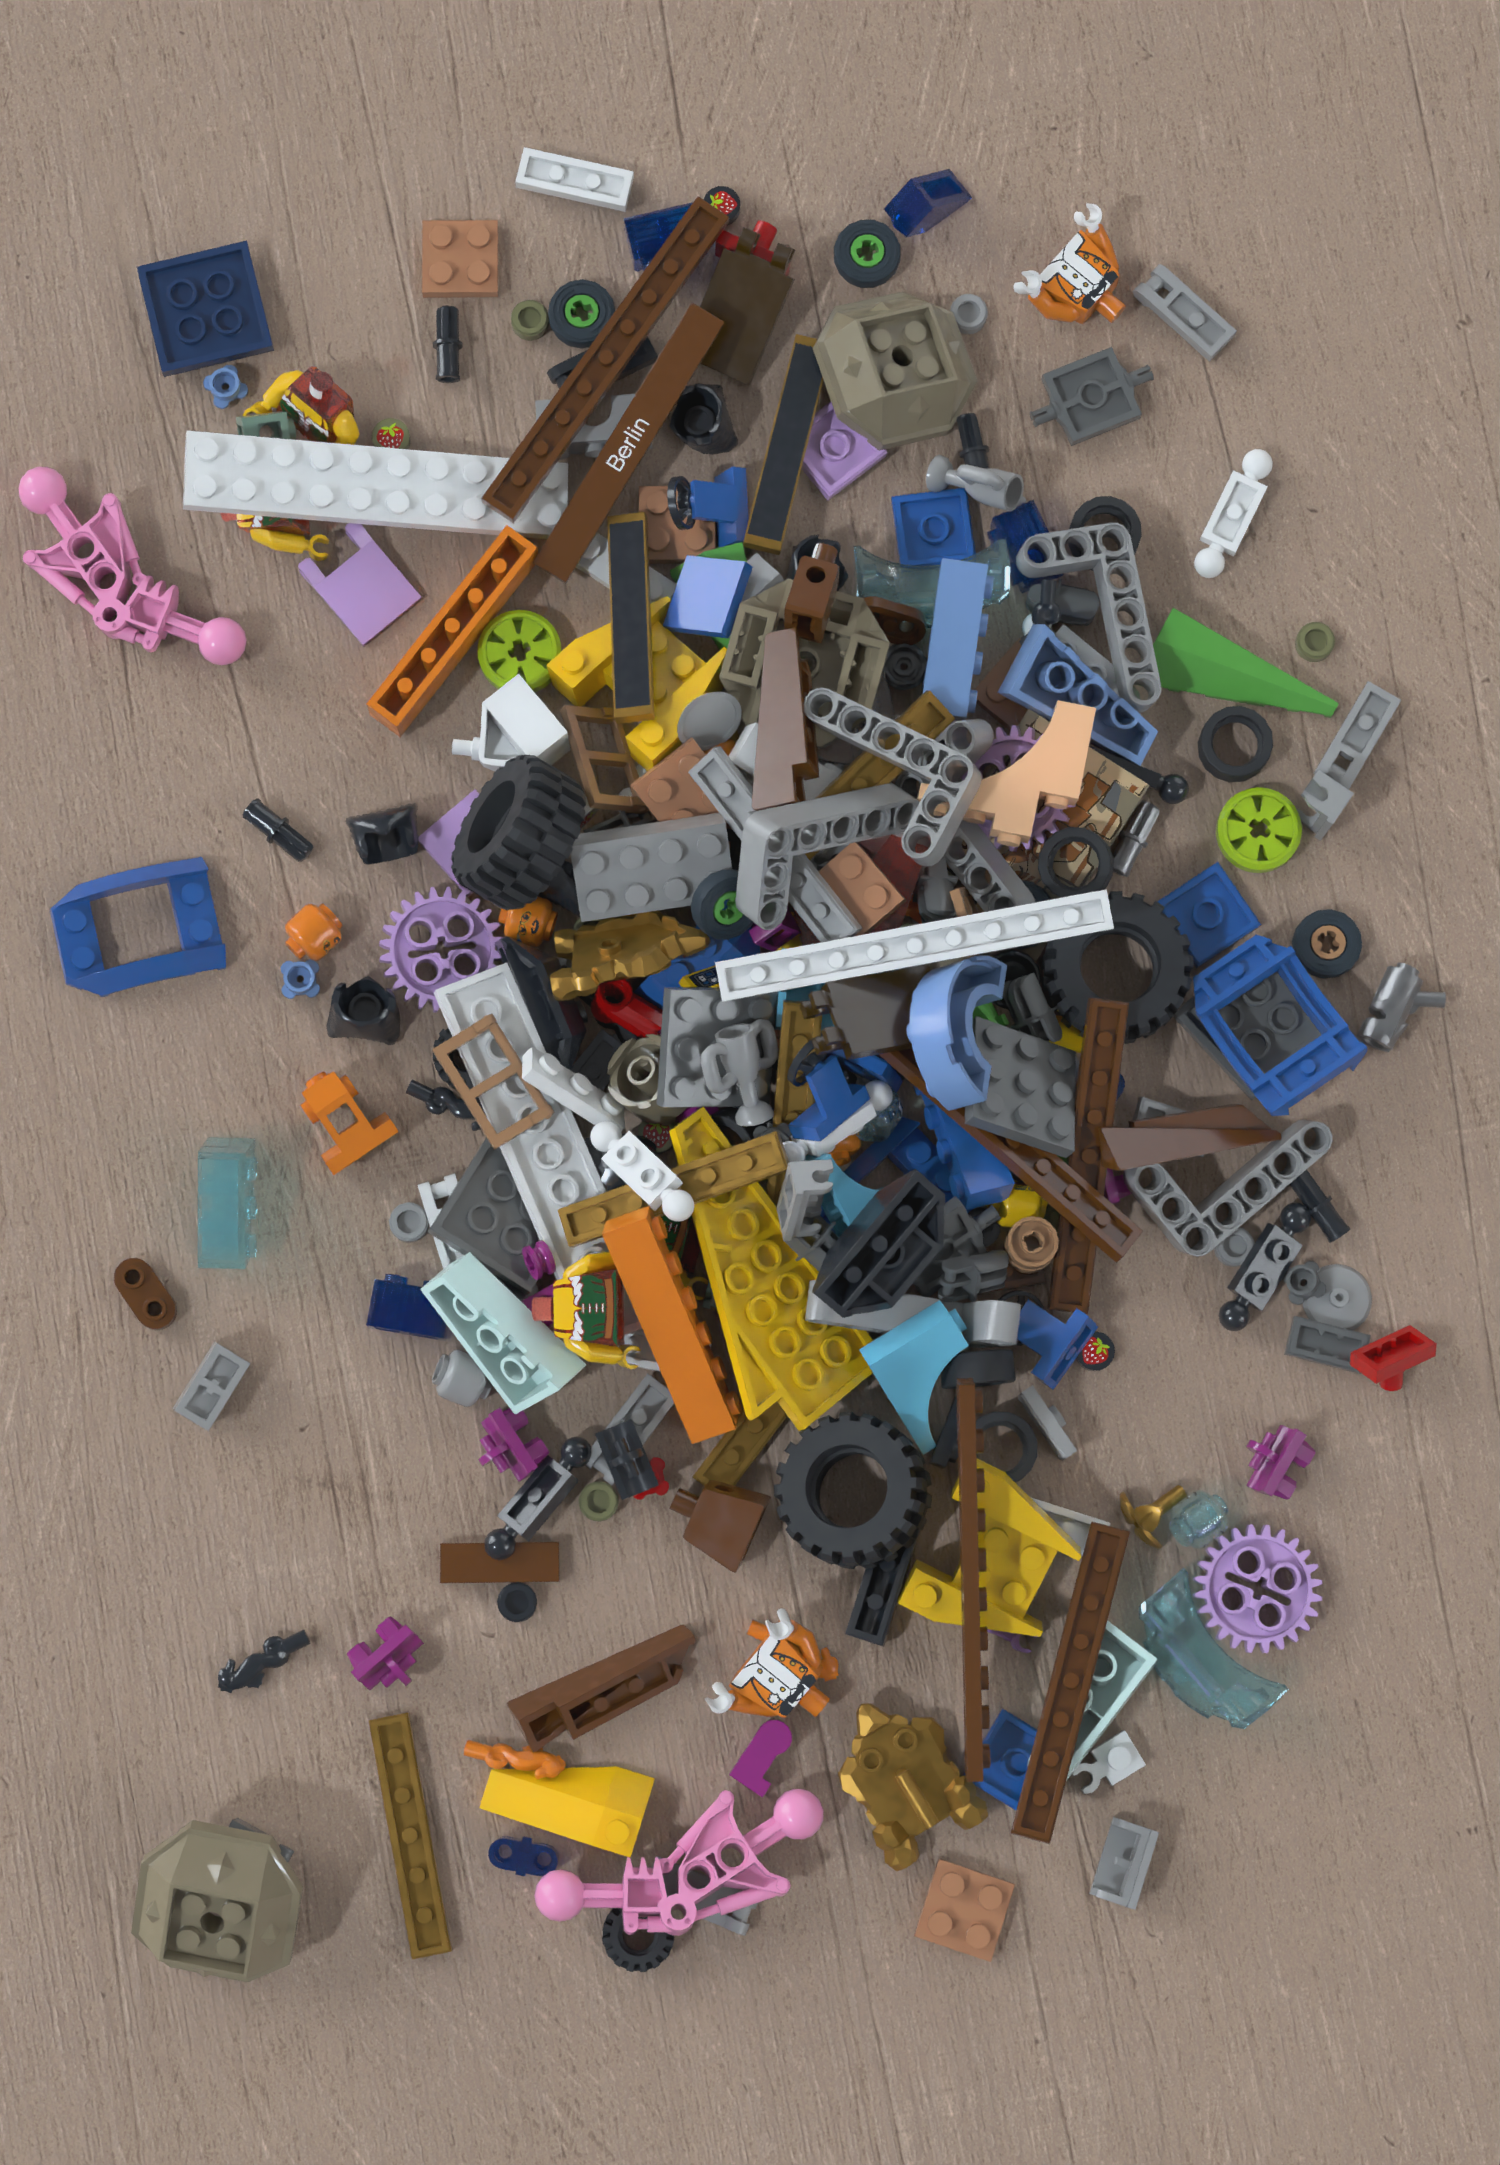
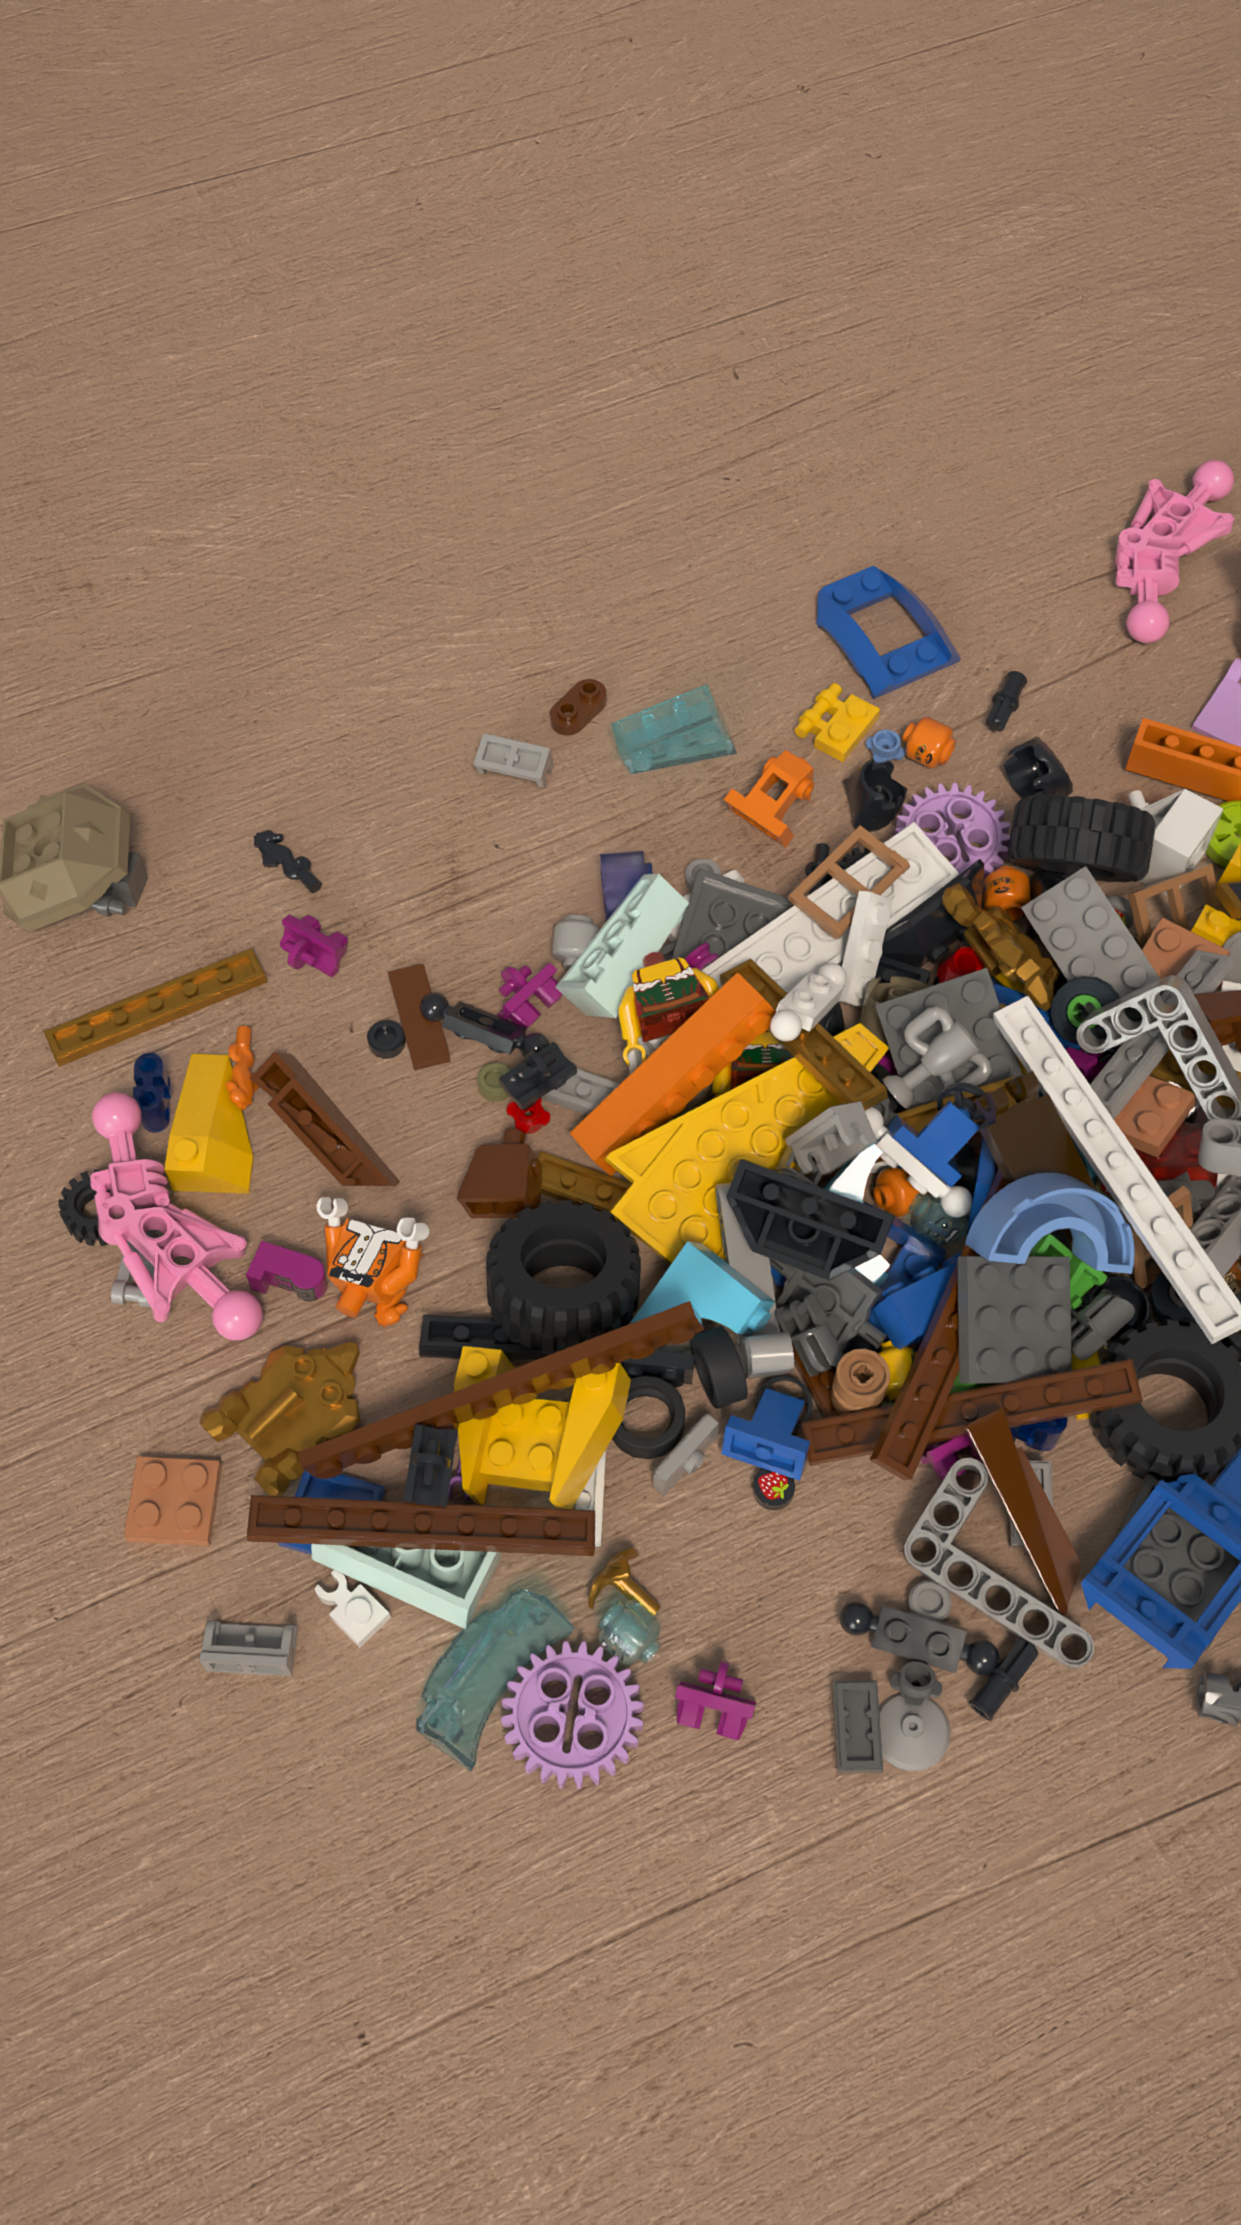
camera: 80 degrees right, 20 degrees down
(258, 1010) = (845, 729): none -> yellow plate
(1024, 1661) = (430, 1466): none -> black hips
(1392, 1355) = (866, 1796): red tile -> none

